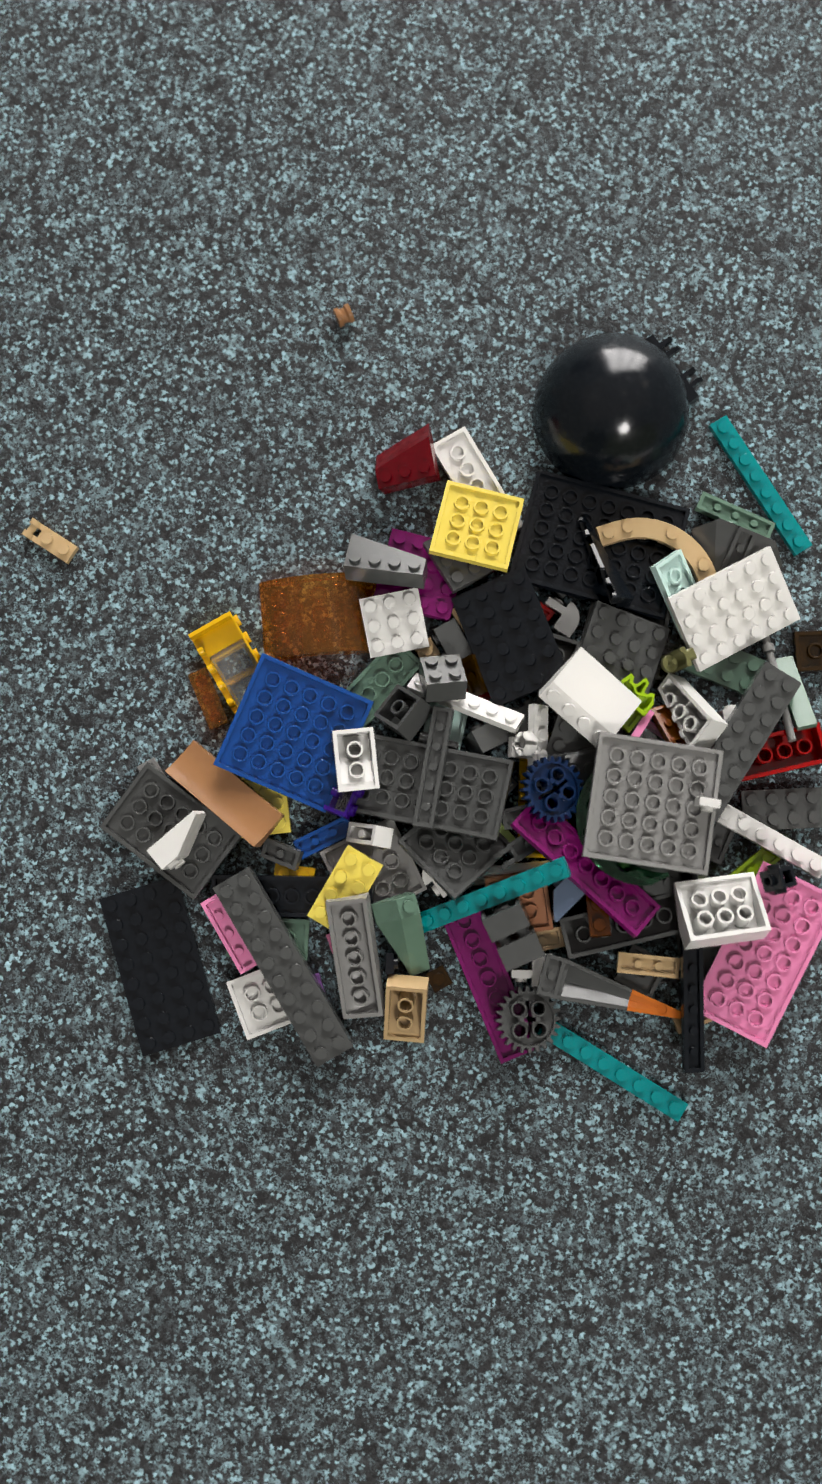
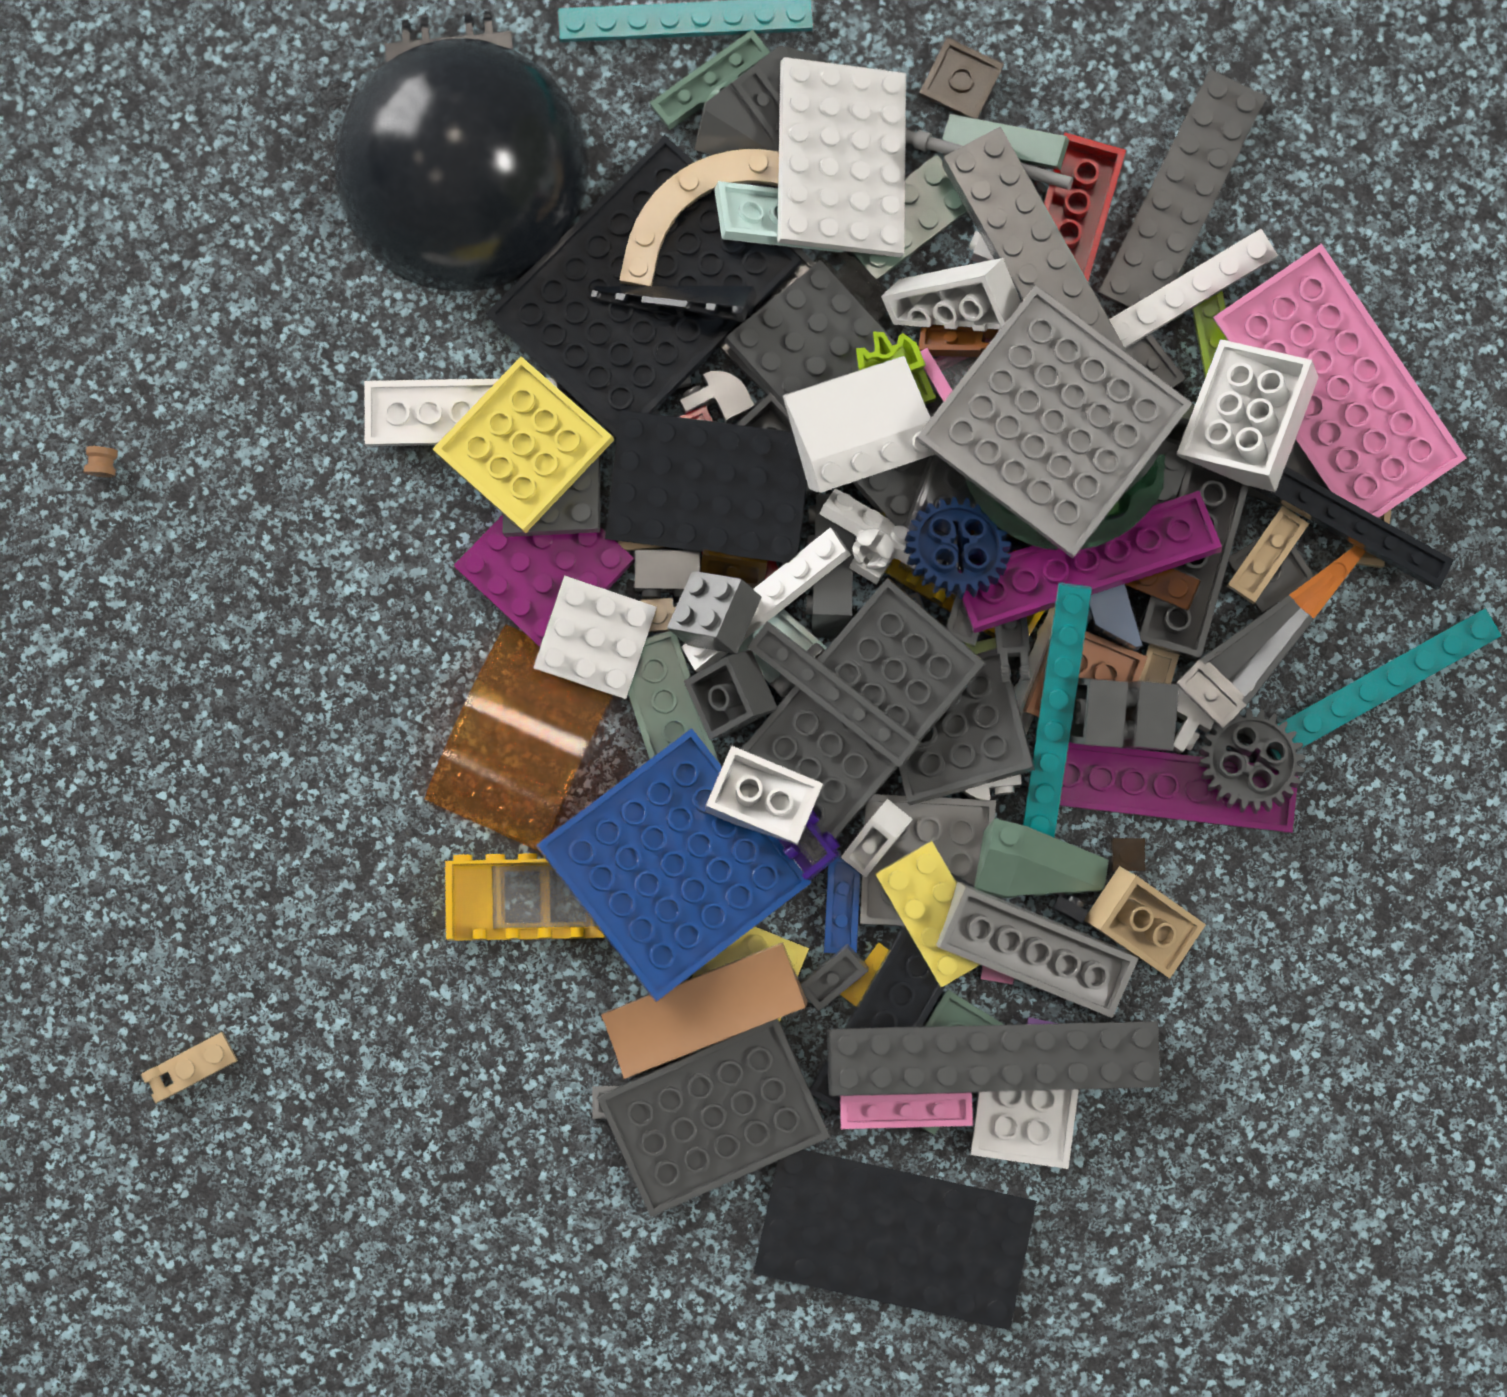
camera: 65 degrees left, 0 degrees up
(177, 843) = (742, 1116): white slope -> none
(208, 698) = (551, 962): clear orange plate -> none
(383, 564) = (504, 605): wedge -> none
(408, 463) = (371, 490): dark red wedge -> none
(677, 659) = (871, 274): olive hips -> none
(707, 804) = (1097, 348): white plate -> none
(778, 878) = (1248, 318): black brick -> none

